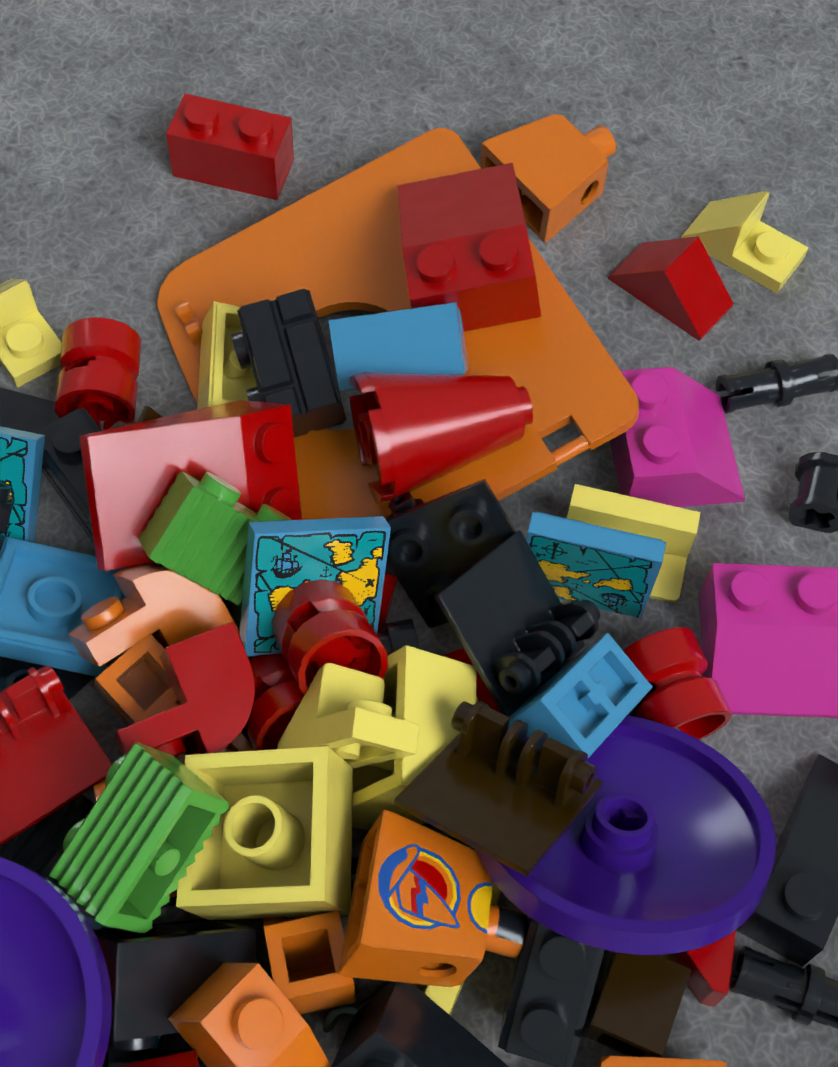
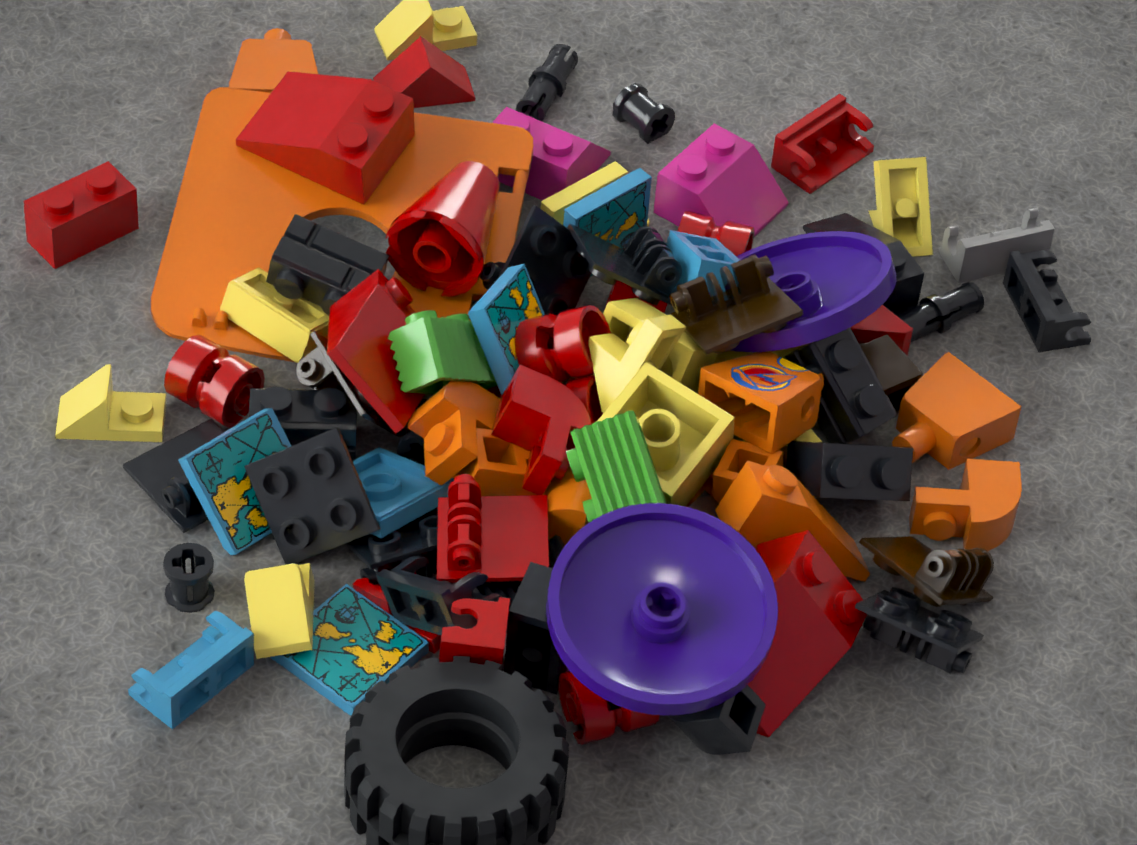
camera: 55 degrees left, 15 degrees down
(400, 342) = (381, 198): dark azure hinge -> none

